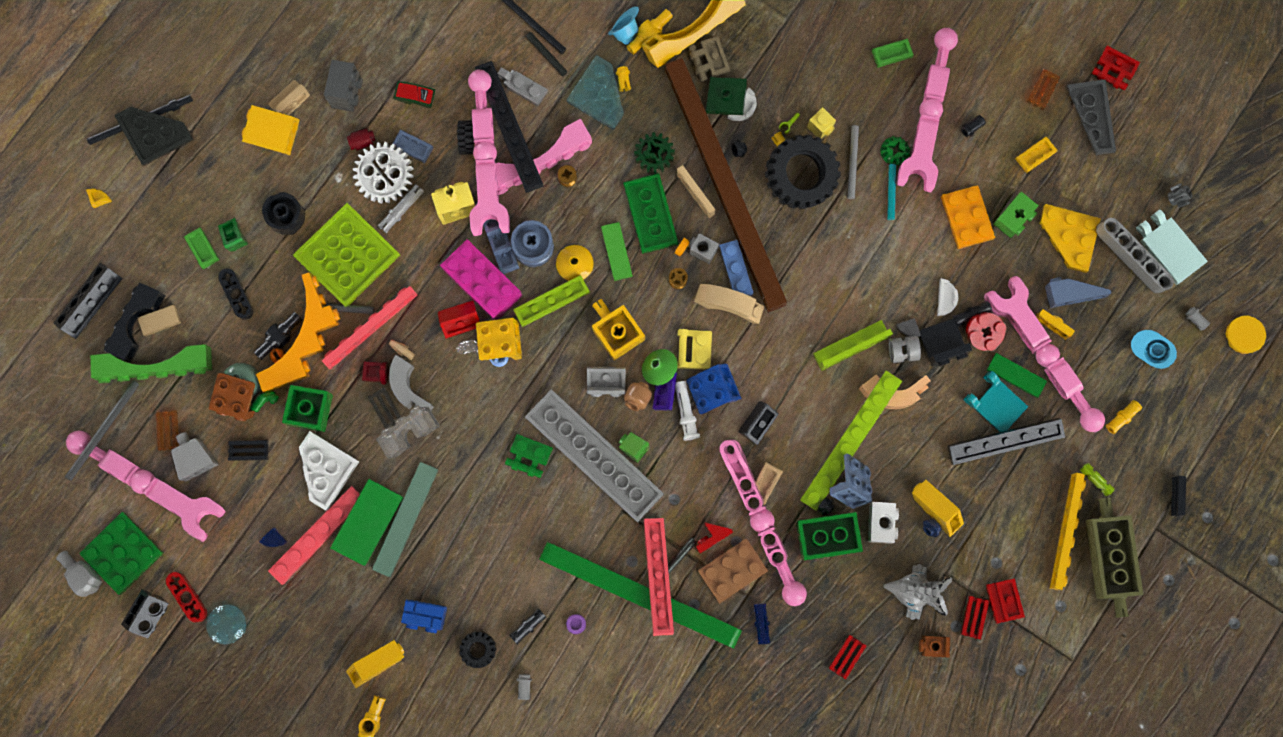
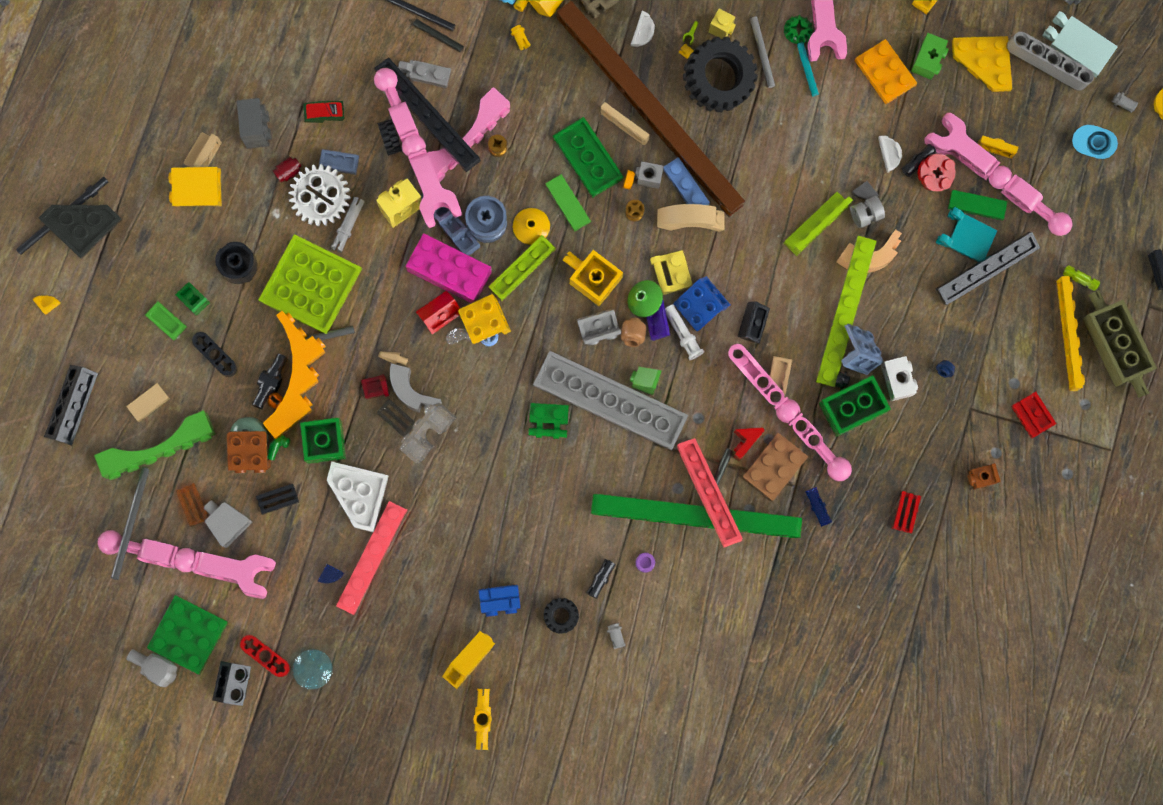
camera: 25 degrees left, 0 degrees up
(143, 301) = (127, 387): black arch -> none
(362, 332) = (352, 351): coral plate -> none
(366, 522) = (415, 530): green tile -> none
(405, 519) = (451, 516): sand green tile -> none
(598, 94) = (501, 58): clear light blue plate -> none
(646, 157) = (573, 107): dark green gear -> none
(726, 96) = (624, 25): dark green plate -> none
(739, 148) = (651, 71): black plate -> none
(916, 592) = (953, 430): light grey piece -> none
(938, 507) = (945, 347): yellow slope -> none
(944, 343) = (902, 195): black bracket -> none
(978, 635) = (1016, 423): red tile -> none
(1069, 292) = (1004, 111): sand blue slope -> none
(1123, 417) = (1087, 213): yellow pin -> none

